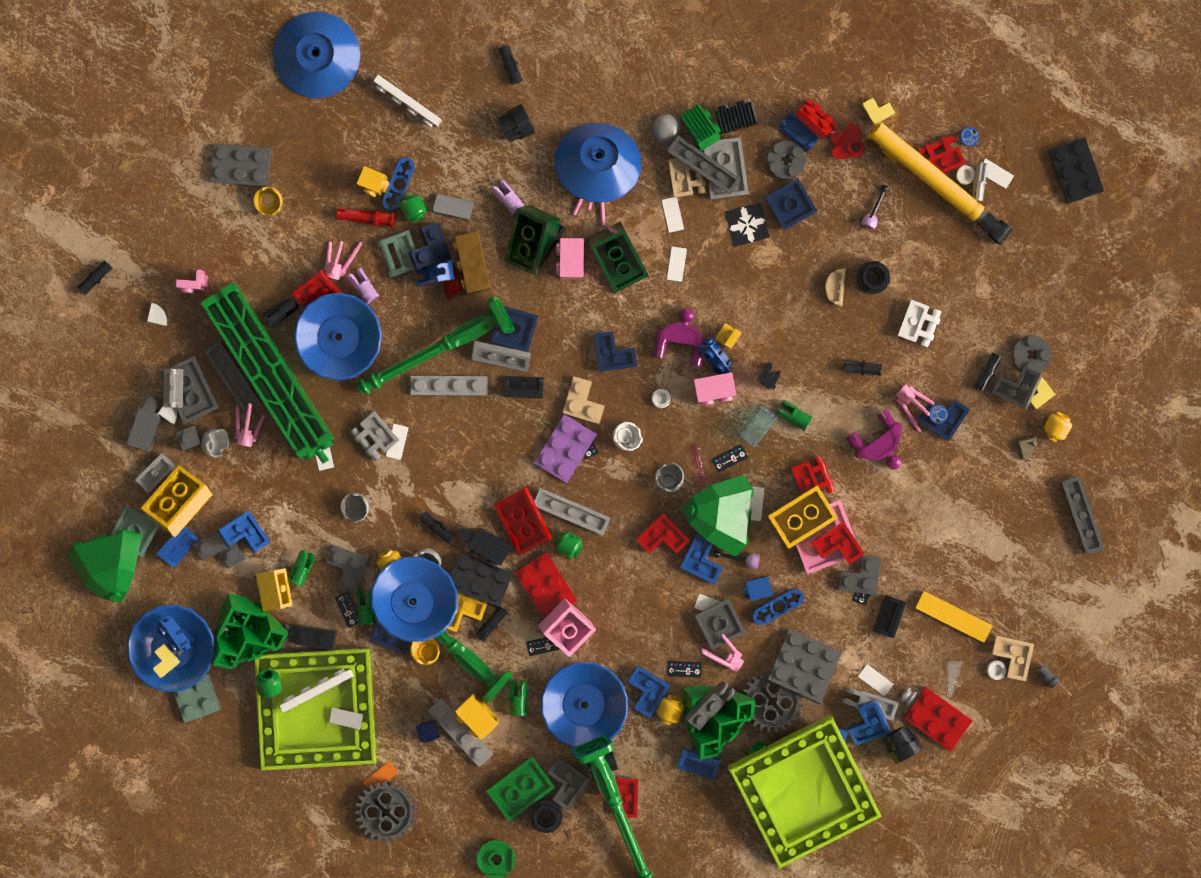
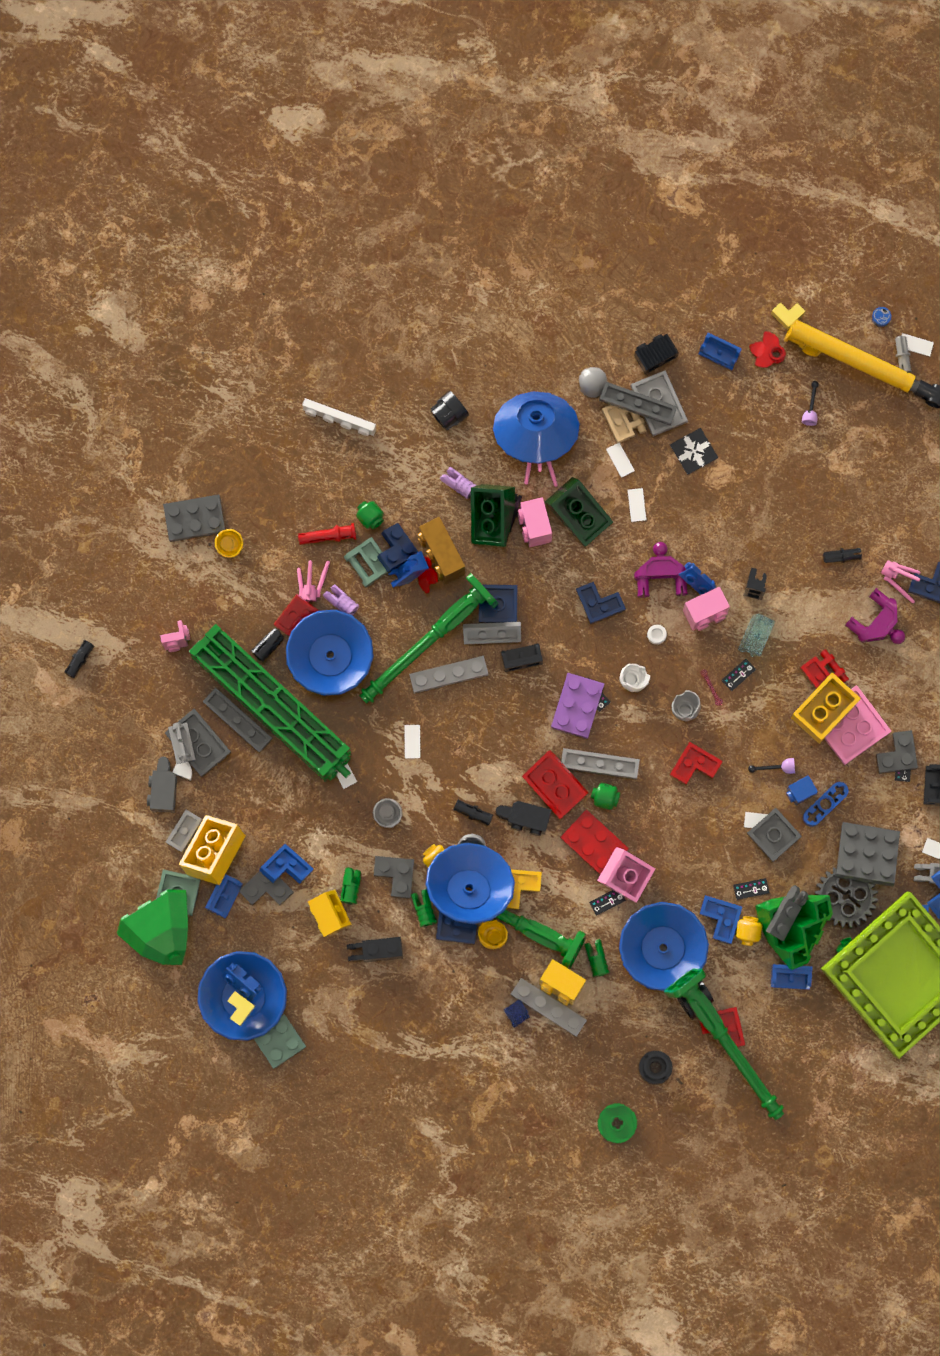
camera: 15 degrees left, 10 degrees down
(157, 315) = (148, 679): white tile -> none
(189, 438) = (209, 788): dark grey brick -> none
(214, 442) = (235, 785): light grey hair -> none
(244, 632) = (311, 962): green brick -> none
(245, 436) = (263, 773): bright pink plant -> none
(268, 683) = (347, 1004): green head -> none
(303, 733) = (399, 1021): lime tile -> none
(320, 74) = (243, 415): blue dish -> none
(323, 685) = (402, 993): white plate -> none
(346, 718) = (432, 1021): white sticker -> none
(347, 609) = (406, 915): black sticker -> none
(373, 182) = (326, 498): yellow brick -> none
(373, 824) = (505, 1087): dark grey gear -> none
(379, 432) = (393, 735): light grey plate -> none
(386, 772) = (481, 1073): orange sticker -> none
(409, 173) = (347, 483): blue beam -> none
(453, 207) = (408, 505): slope -> none
(480, 580) = (529, 853): black plate -> none
(491, 623) = (550, 892): black pin -> none
(510, 64) = (428, 359): black pin -> none
(520, 788) = (623, 1047): green plate -> none
(572, 781) = (672, 1027): dark grey plate -> none
(577, 402) = (580, 663): tan plate -> none
(696, 561) = (734, 780): blue plate -> none
(700, 127) = (625, 370): green brick -> none
(722, 513) = (747, 726): green brick -> none
(728, 336) = (705, 558): yellow bracket -> none
(731, 661) = (795, 868): bright pink plant -> none
(756, 503) = (775, 711): white sticker -> none
(791, 169) = (717, 371): dark grey plate -> none
(791, 204) = (730, 420): dark blue plate -> none
(798, 417) = (789, 617): green hinge -> none
(816, 119) = (732, 335): red plate -> none
(835, 287) = (794, 486): tan plate -> none
(841, 539) = (868, 720): red plate -> none
(882, 272) = (833, 460): black piece -> none
(914, 320) = (878, 500): white plate -> none
(938, 414) = (928, 579): blue tile -> none
(947, 160) = (868, 341): red plate -> none
(965, 175) = (887, 352): white tile -> none

